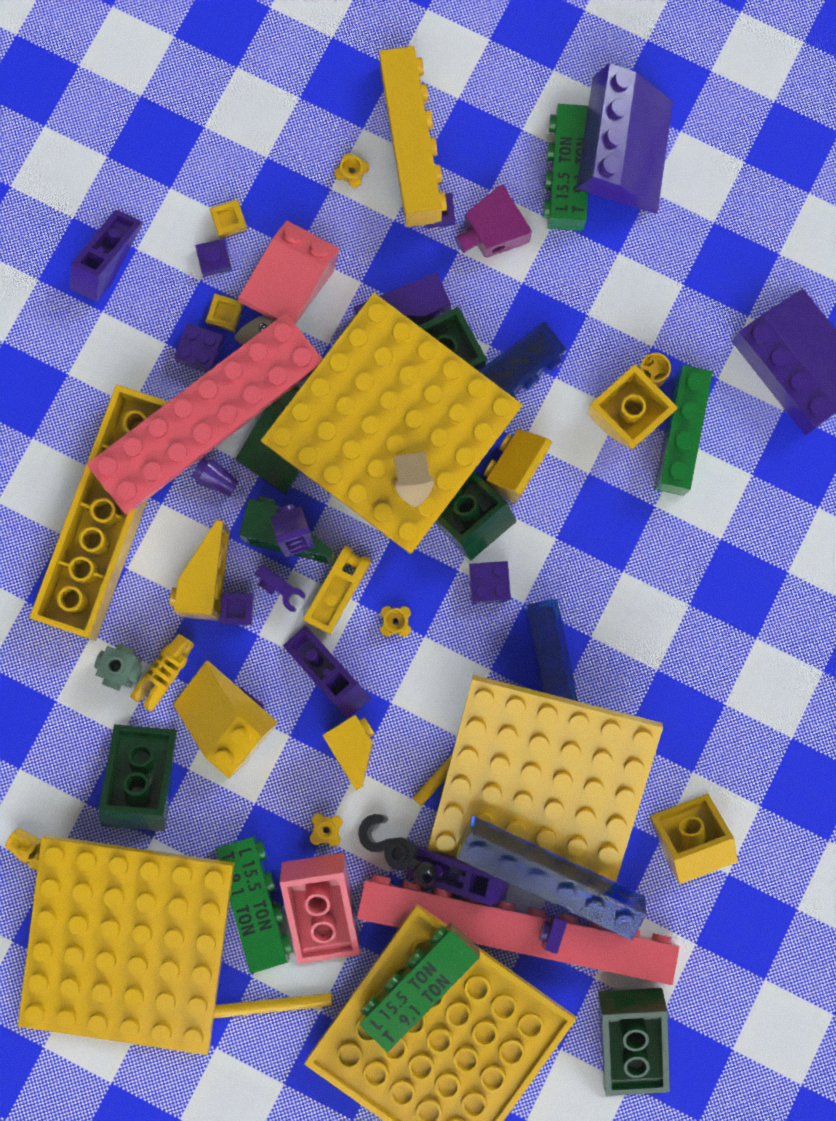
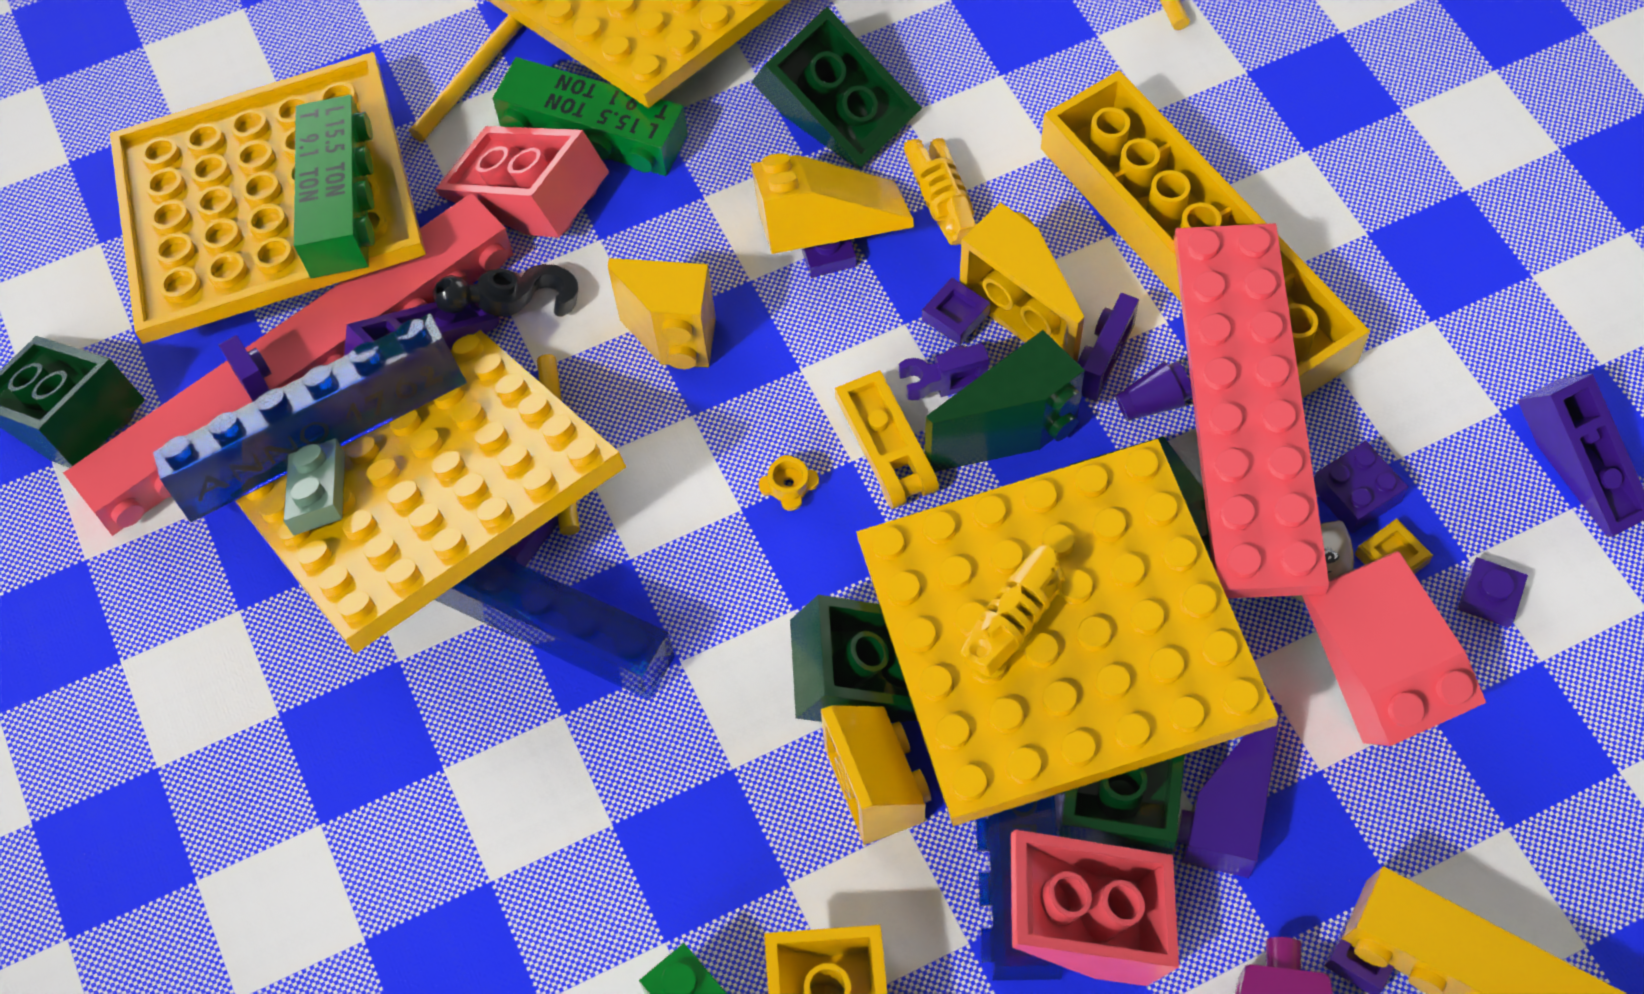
camera: 135 degrees right, 20 degrees down
(126, 675) = (986, 142): sand green brick -> none
(192, 520) = (1113, 331): none -> dark purple plate
(228, 219) = (1544, 650): yellow tile -> none
(291, 530) = (992, 358): dark purple slope -> none
(326, 672) = (786, 355): dark purple slope -> none
(332, 837) = (598, 251): yellow plate -> none
(350, 161) = (1531, 862): yellow plate -> none
(412, 437) = (1014, 611): none -> yellow hinge
(413, 478) = (957, 579): tan tile -> none
(489, 582) = (742, 630): dark purple piece -> none
(512, 321) = (1094, 907): none -> coral slope
(588, 836) = (314, 486): none -> sand green plate
(694, 838) = (197, 639): yellow slope -> none

